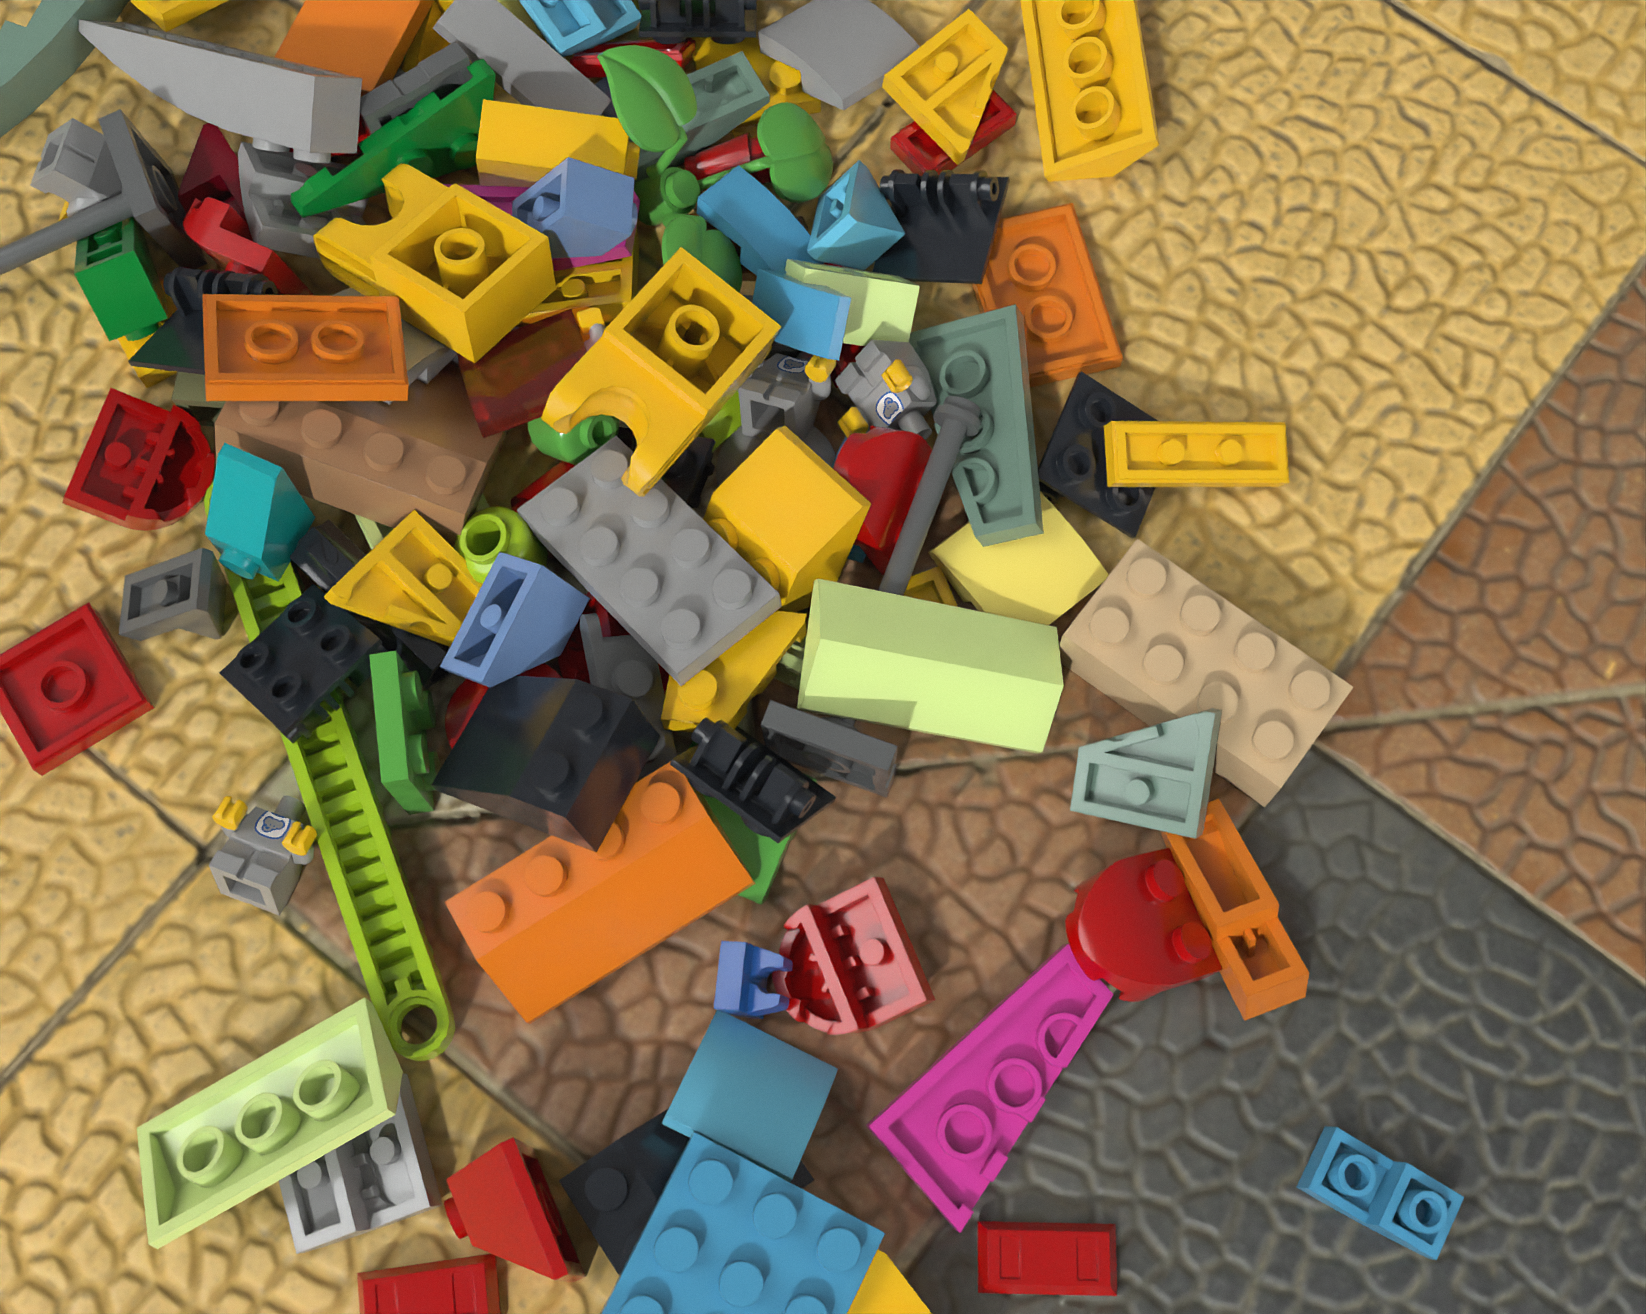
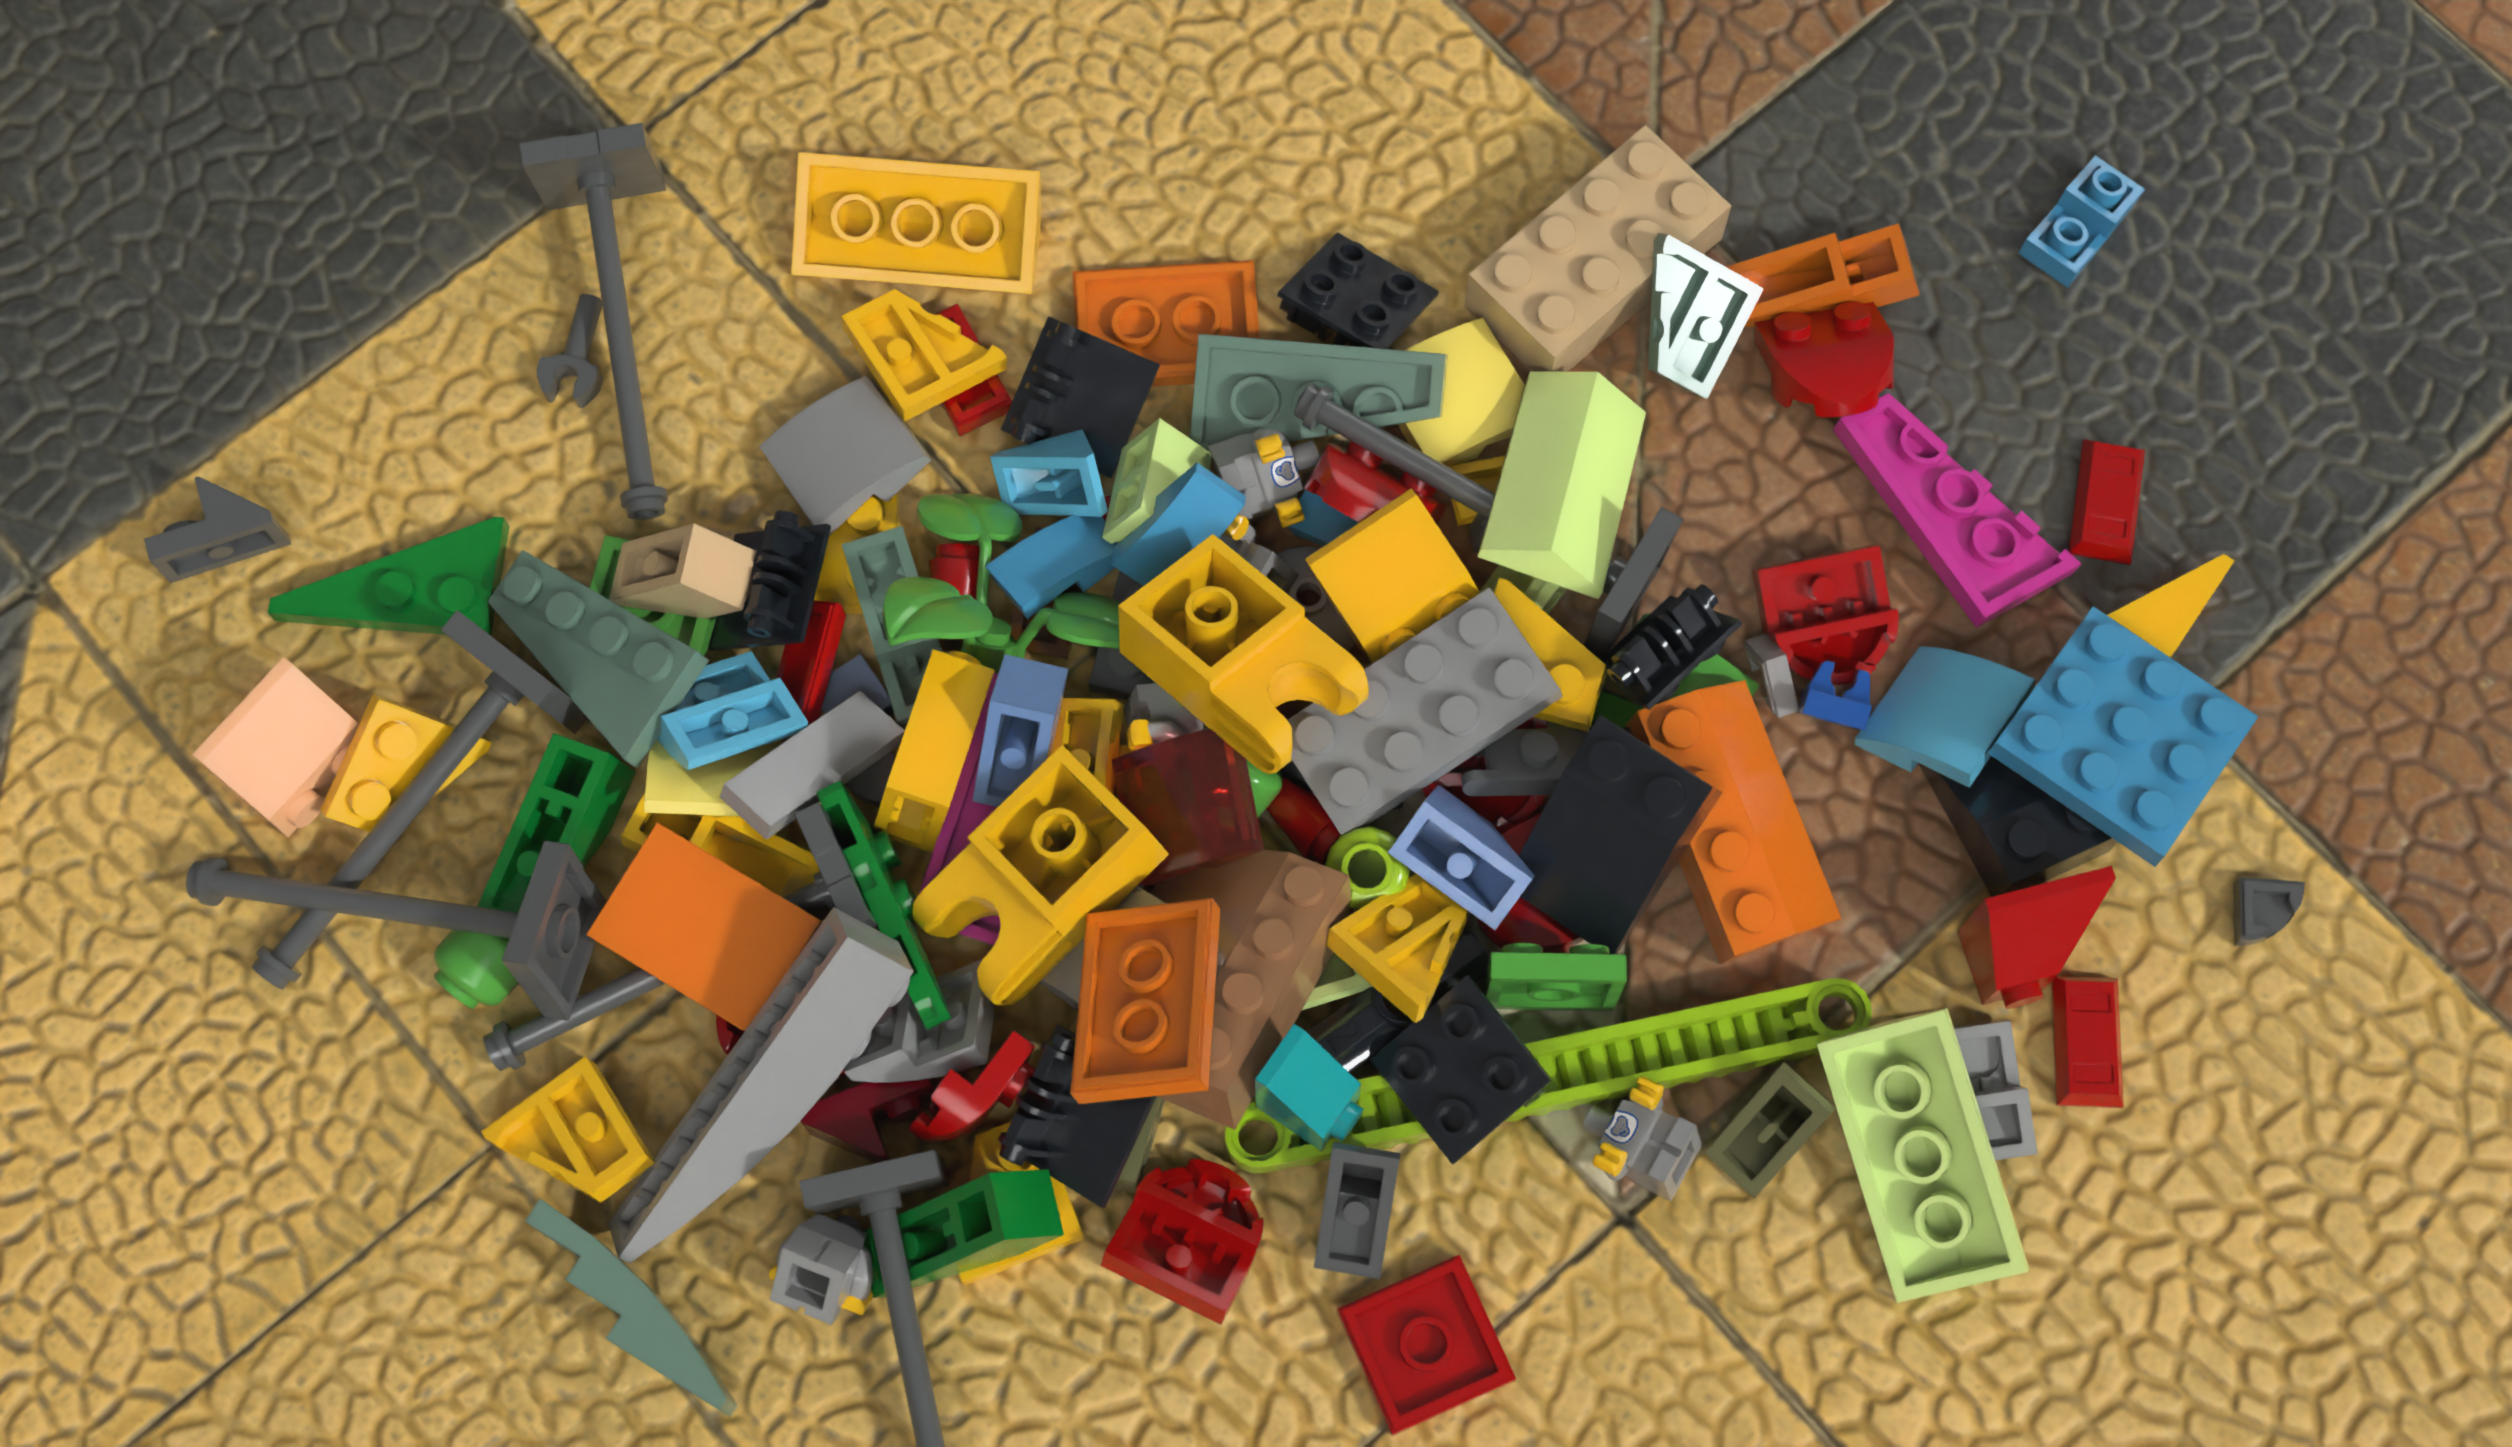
camera: 80 degrees left, 0 degrees up
(292, 975) = (1769, 1130): none -> olive slope
(771, 914) = (1774, 666): none -> light grey tile
(1196, 454) = (1376, 214): yellow tile -> none

